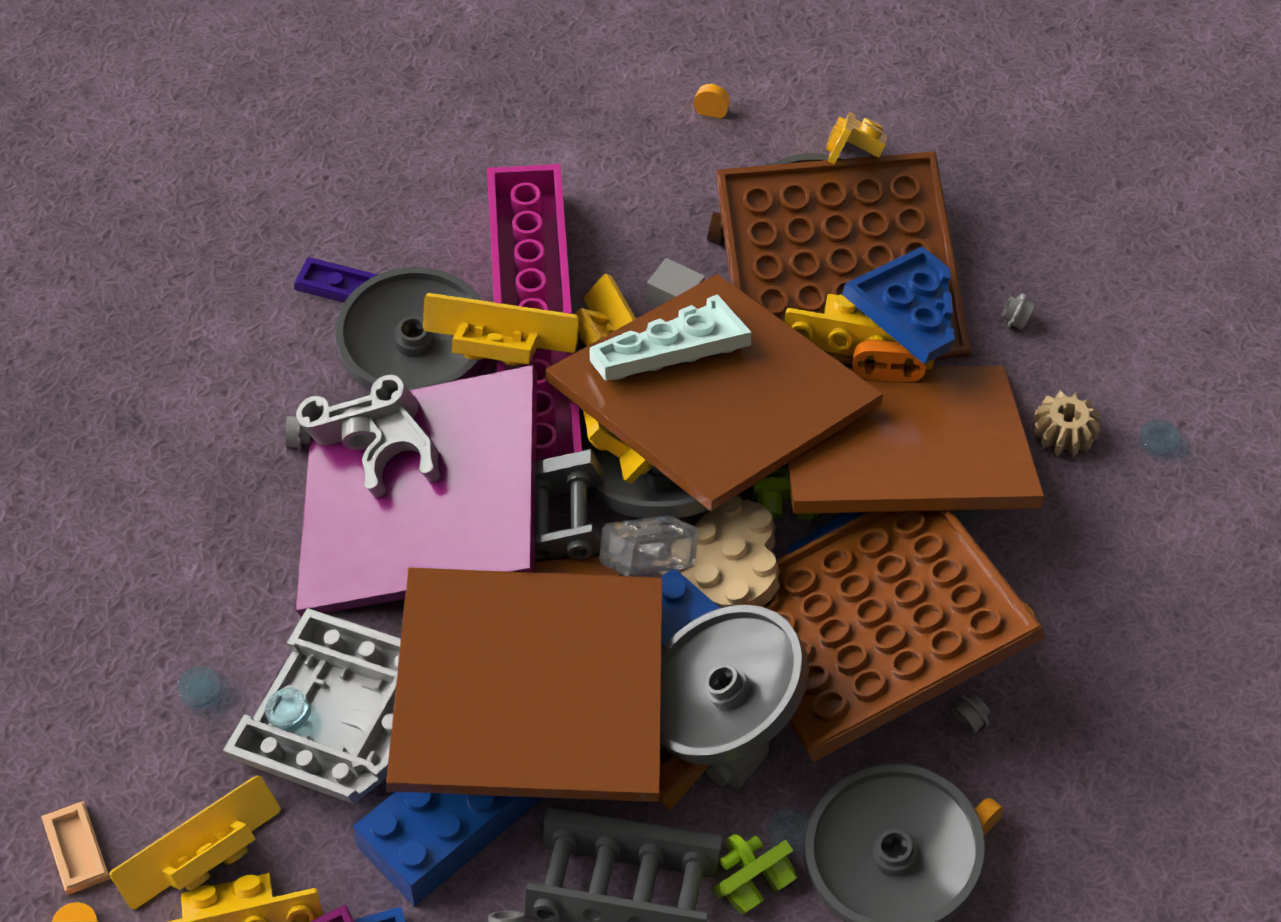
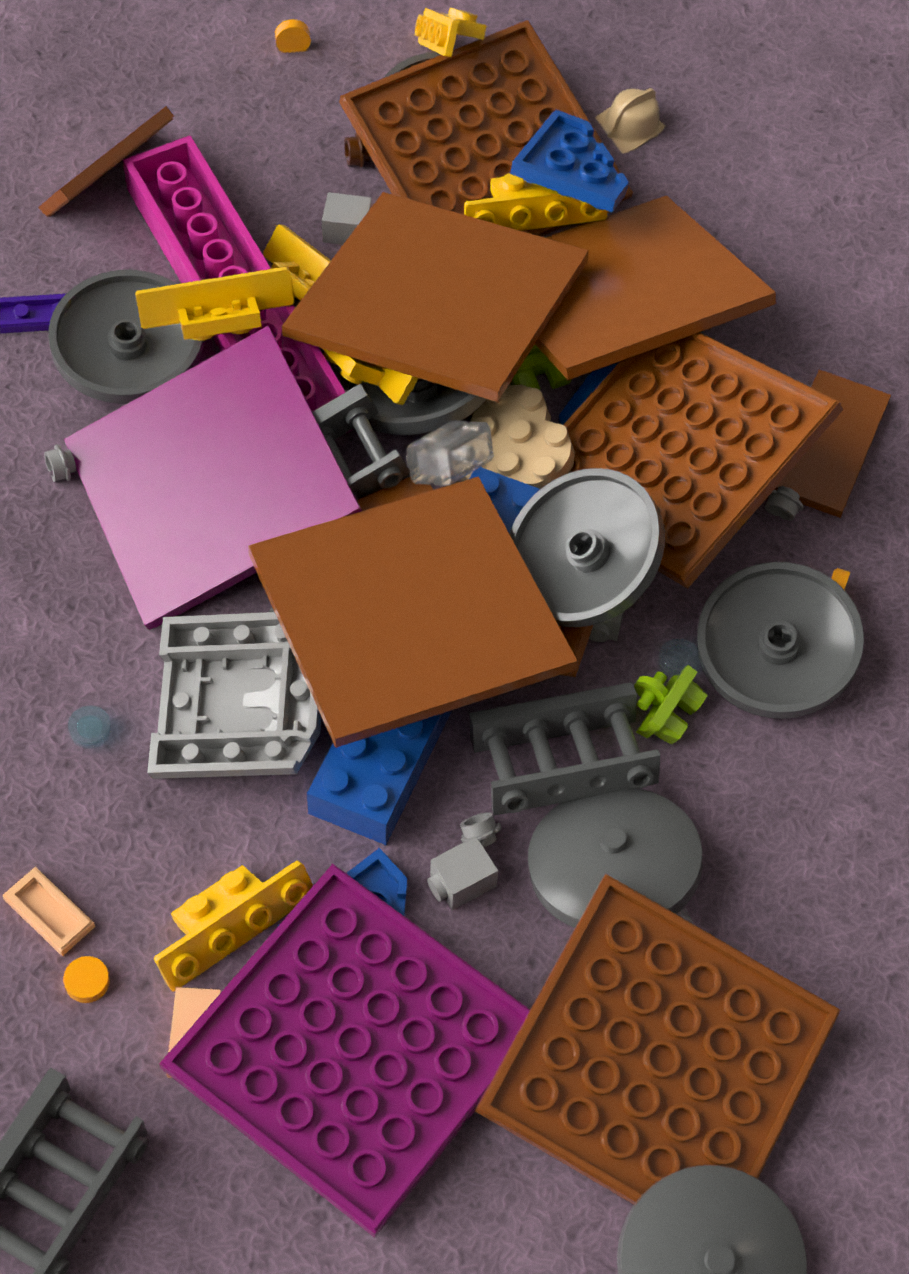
camera: 25 degrees left, 5 degrees up
(197, 845) = (166, 866): yellow bracket -> none
(288, 709) = (190, 713): clear light blue tile -> none
(375, 423) = (136, 427): light grey piece -> none
(475, 165) = (106, 162): none -> dark orange tile
(683, 339) = (388, 260): light aqua wing -> none
(888, 362) = (571, 222): orange beam -> none
(1005, 276) = (632, 119): none -> tan piece
(1017, 311) = (656, 143): light grey plate -> none
(1054, 674) = (834, 461): none -> dark orange tile
(1066, 424) = (745, 228): tan gear -> none
(1159, 438) = (824, 216): clear light blue tile -> none

